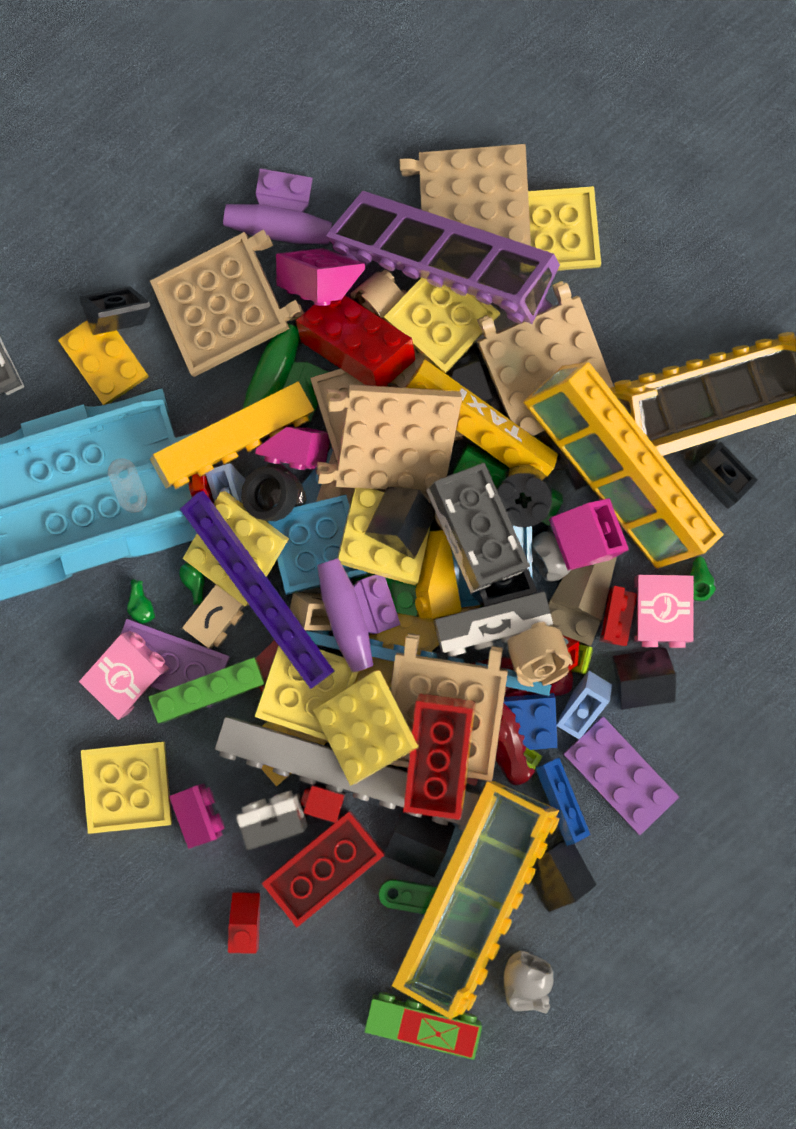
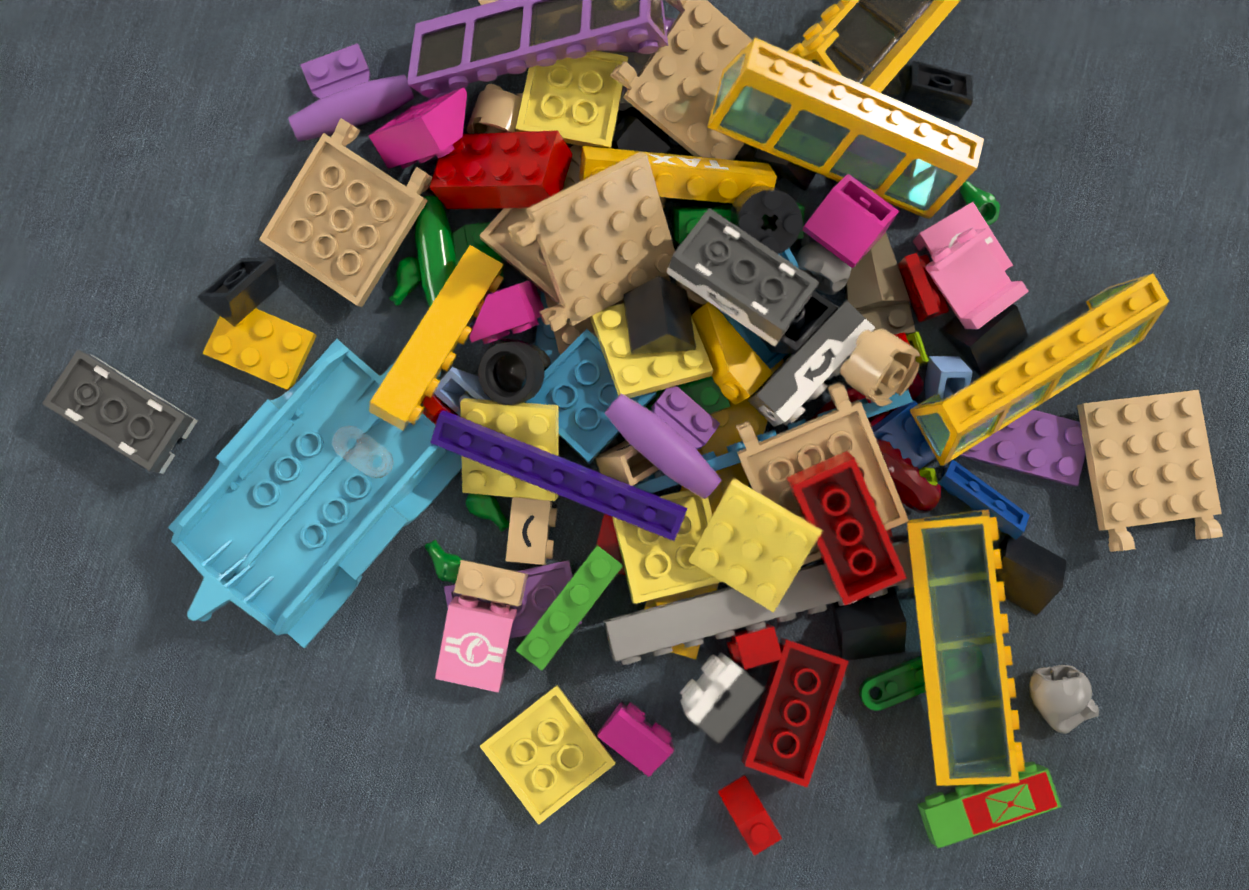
camera: 30 degrees left, 0 degrees up
(161, 637) = (491, 583): none -> tan brick
(240, 375) = (407, 278): none -> green animal
(655, 633) = (973, 279): none -> bright pink panel
(703, 852) = (1149, 464): none -> tan plate
(738, 732) = (1113, 324): none -> yellow window

